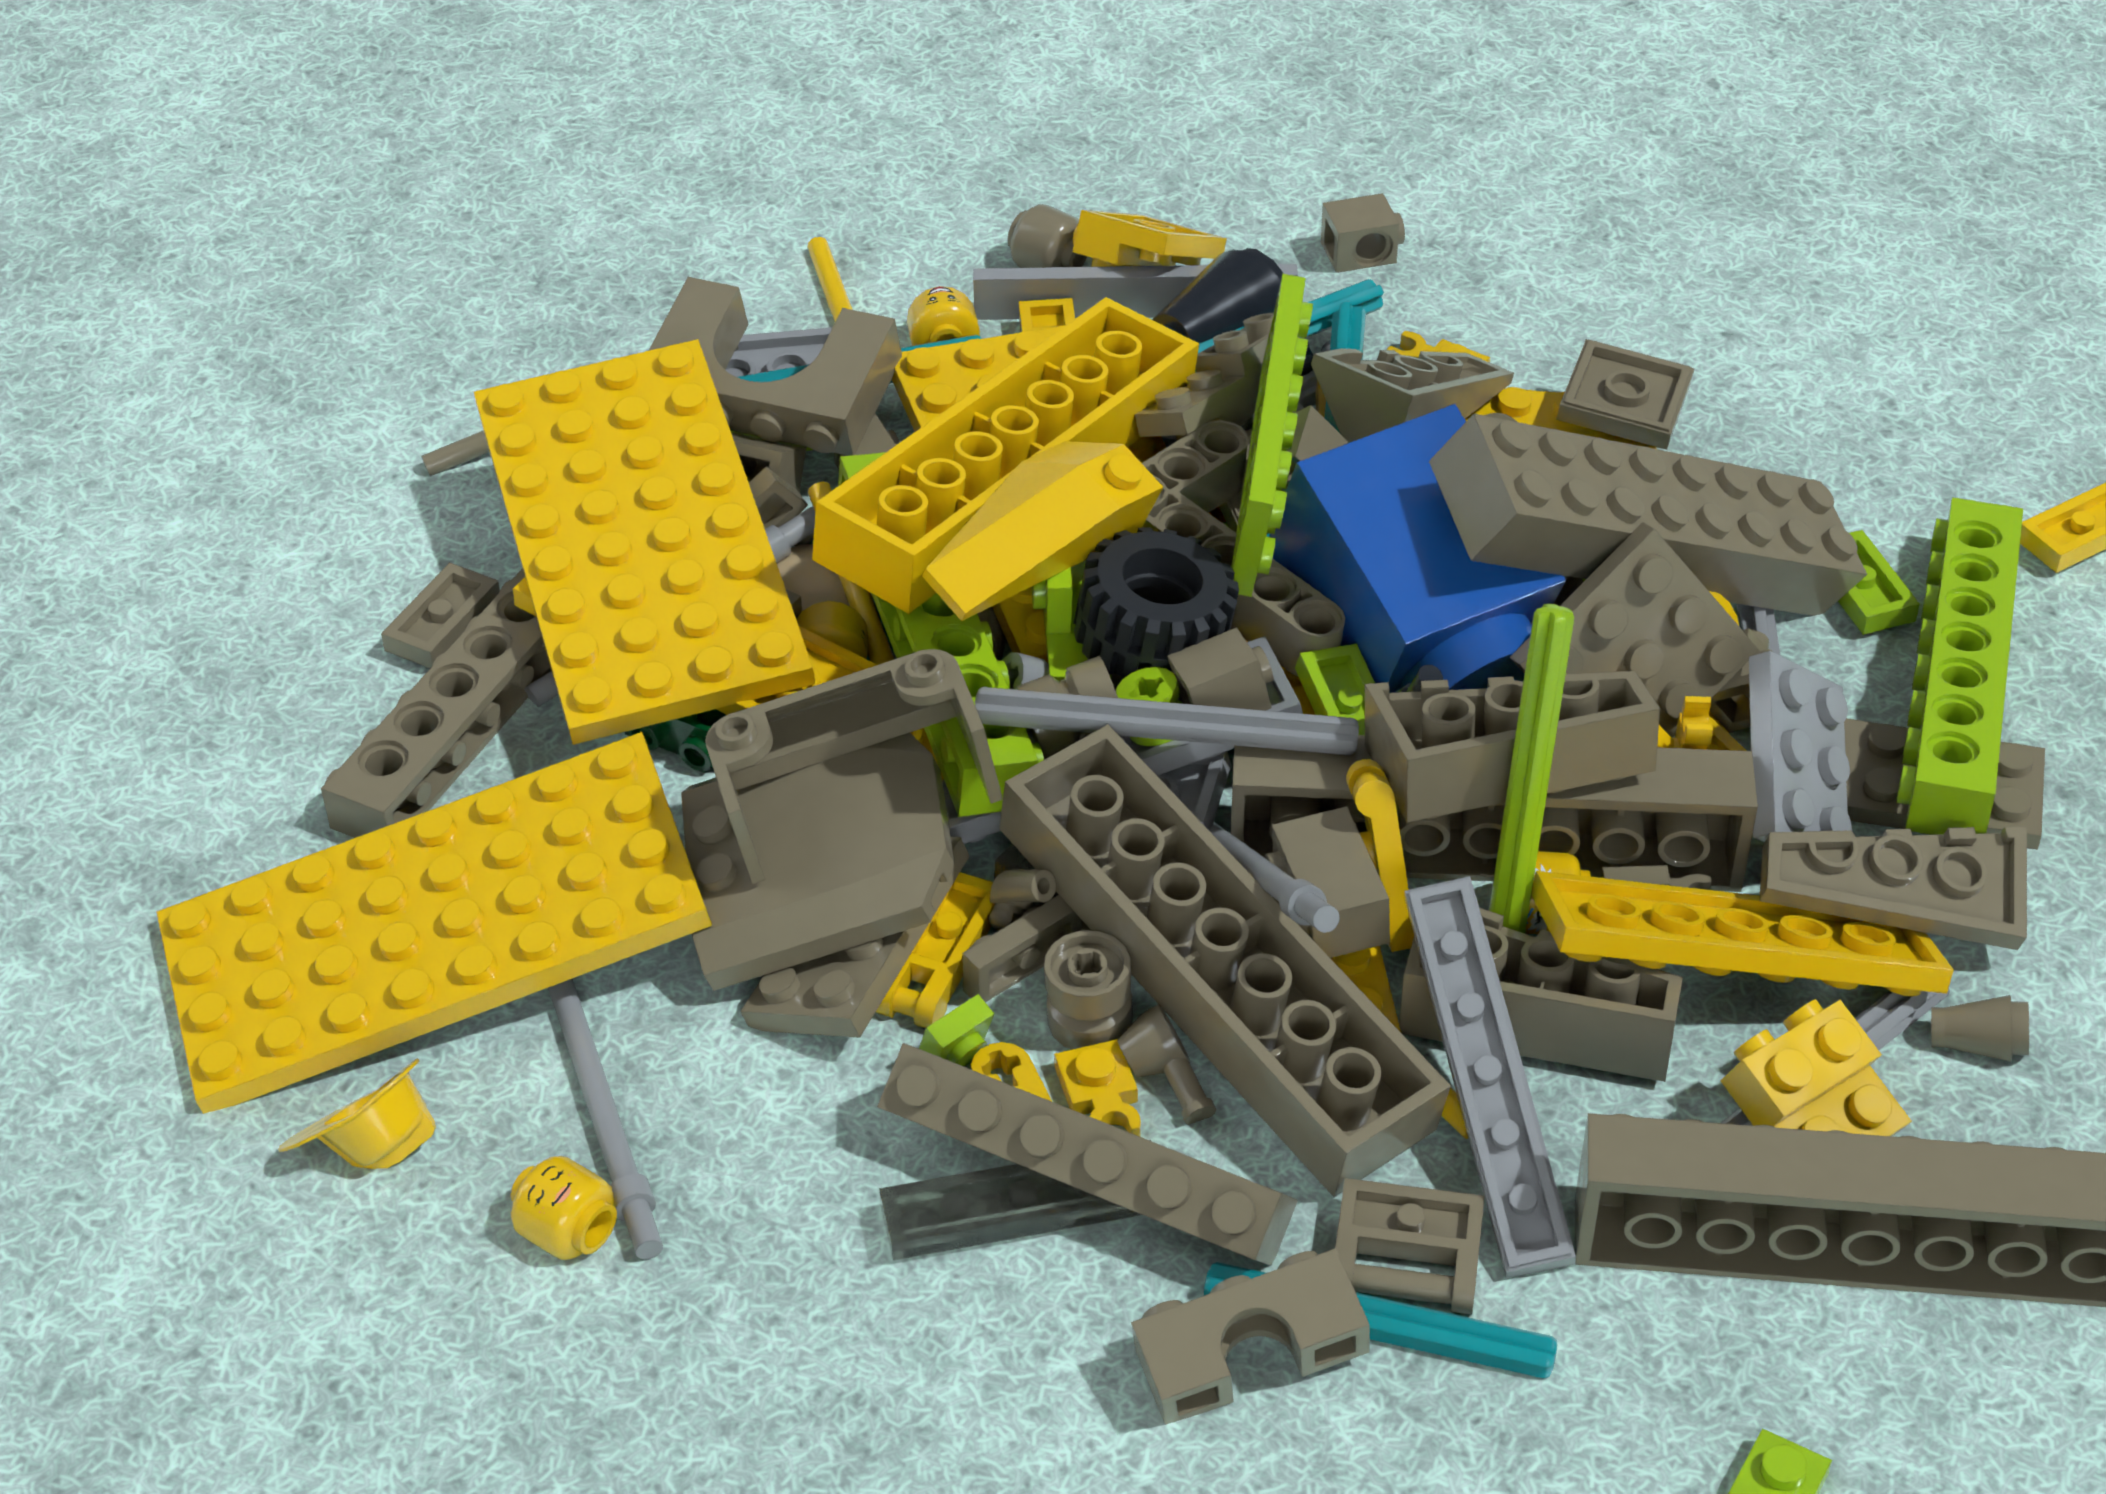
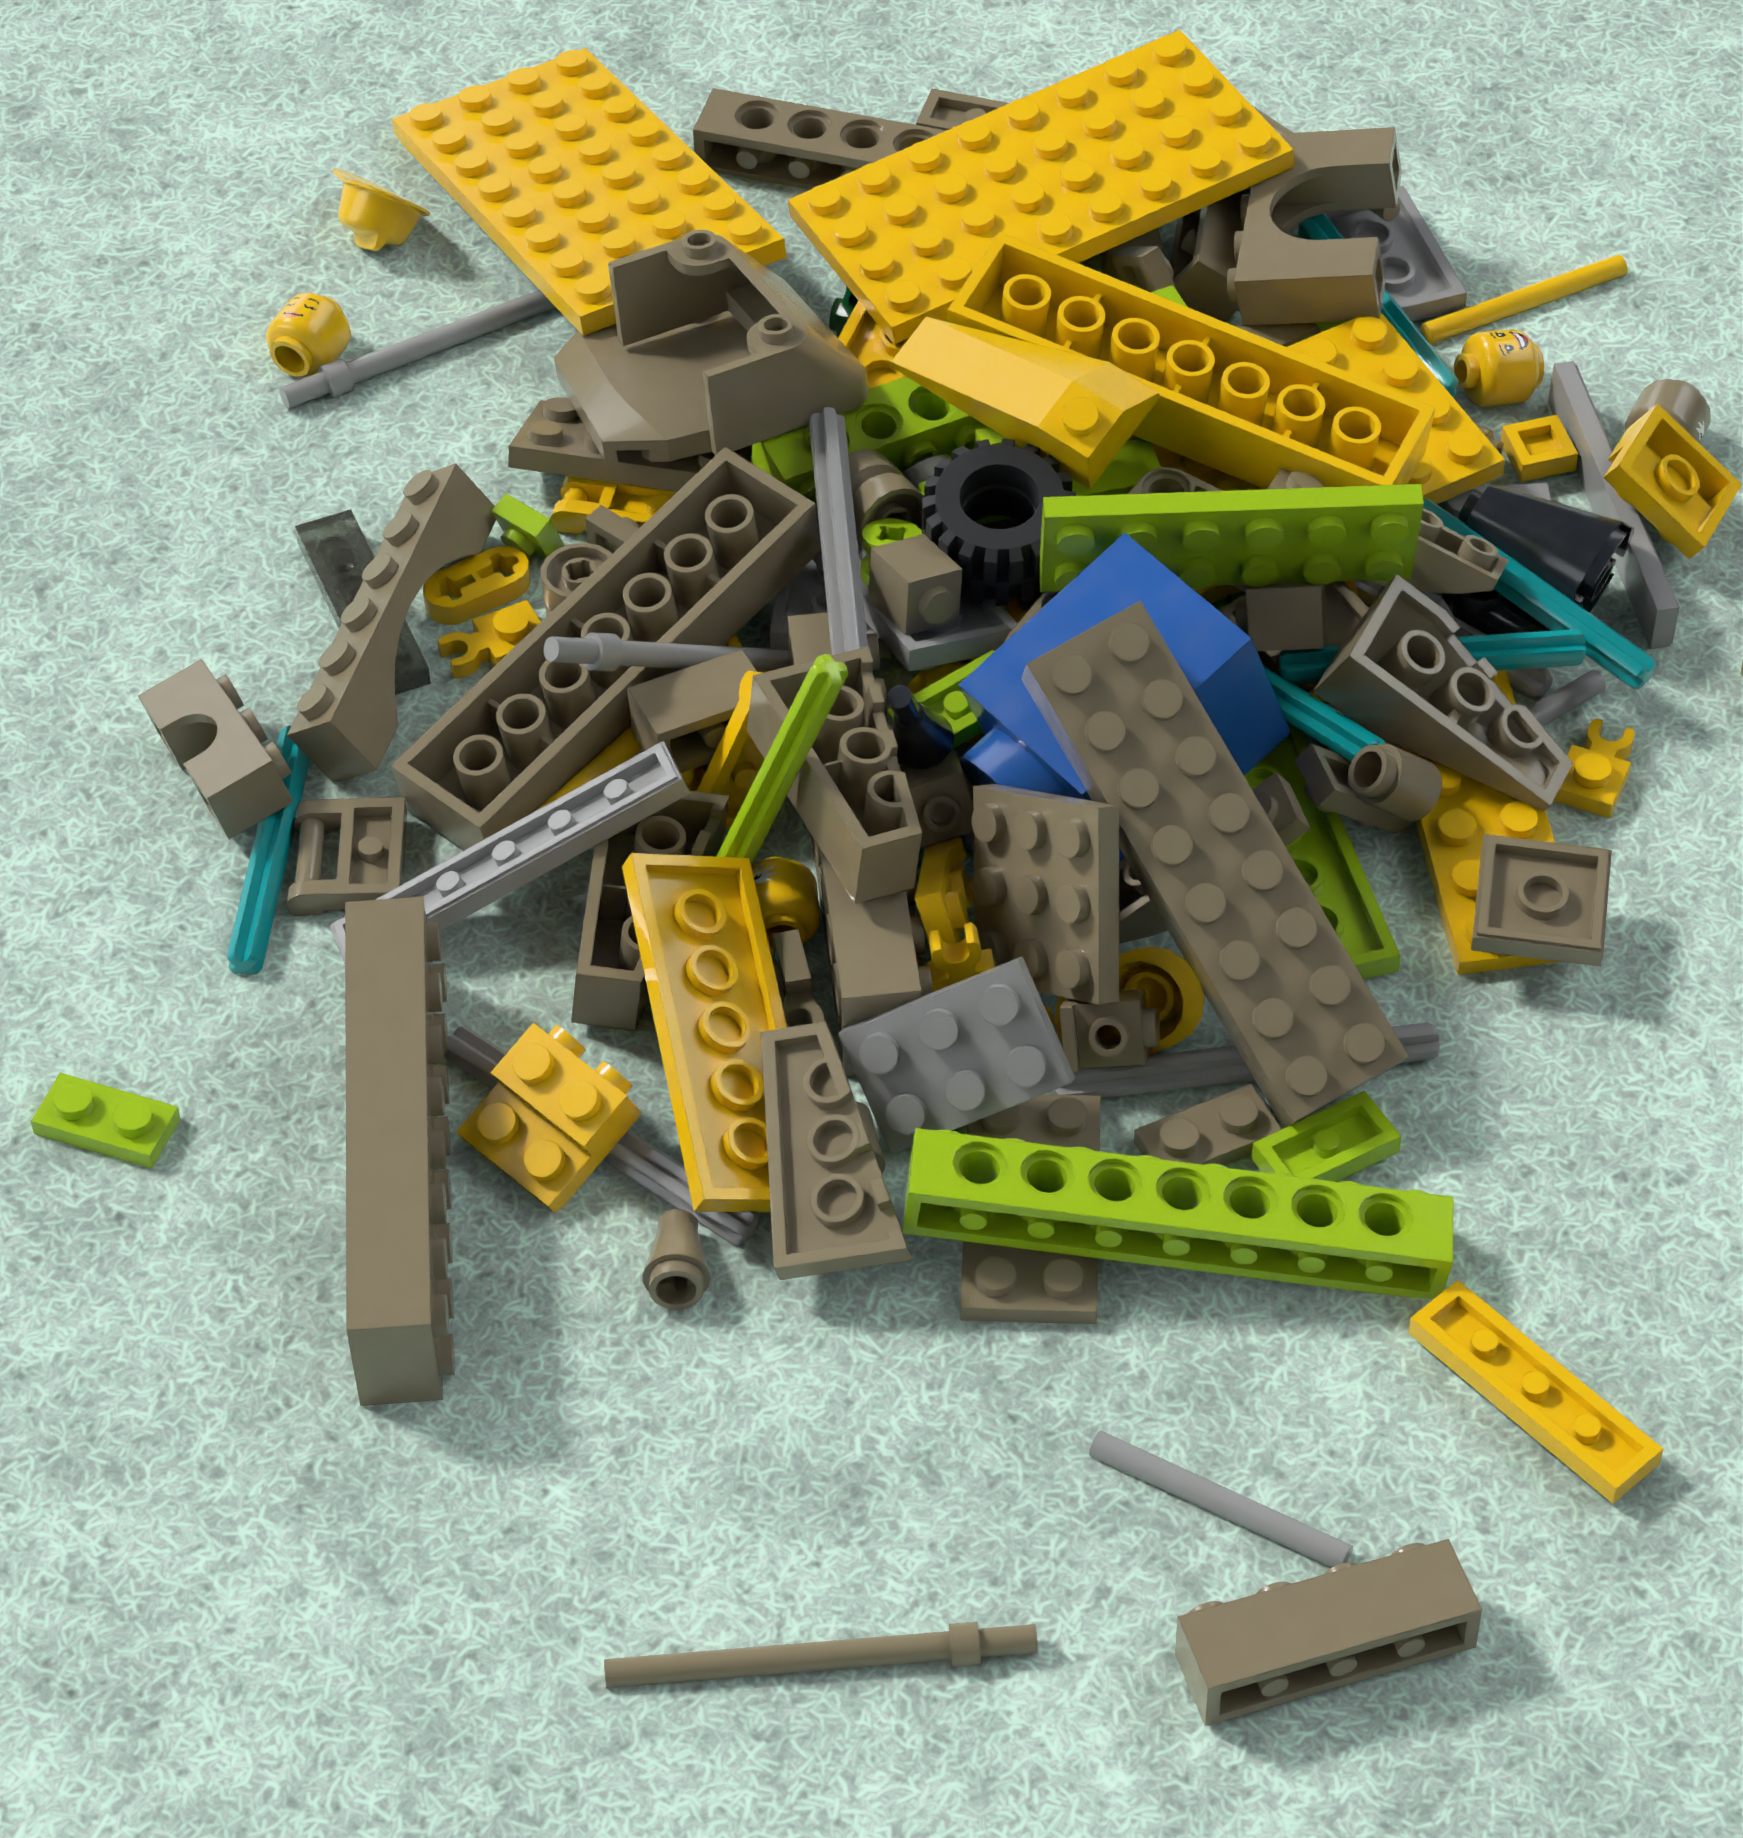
camera: 80 degrees right, 5 degrees up
(1839, 653) = (1211, 1131): none -> dark tan plate

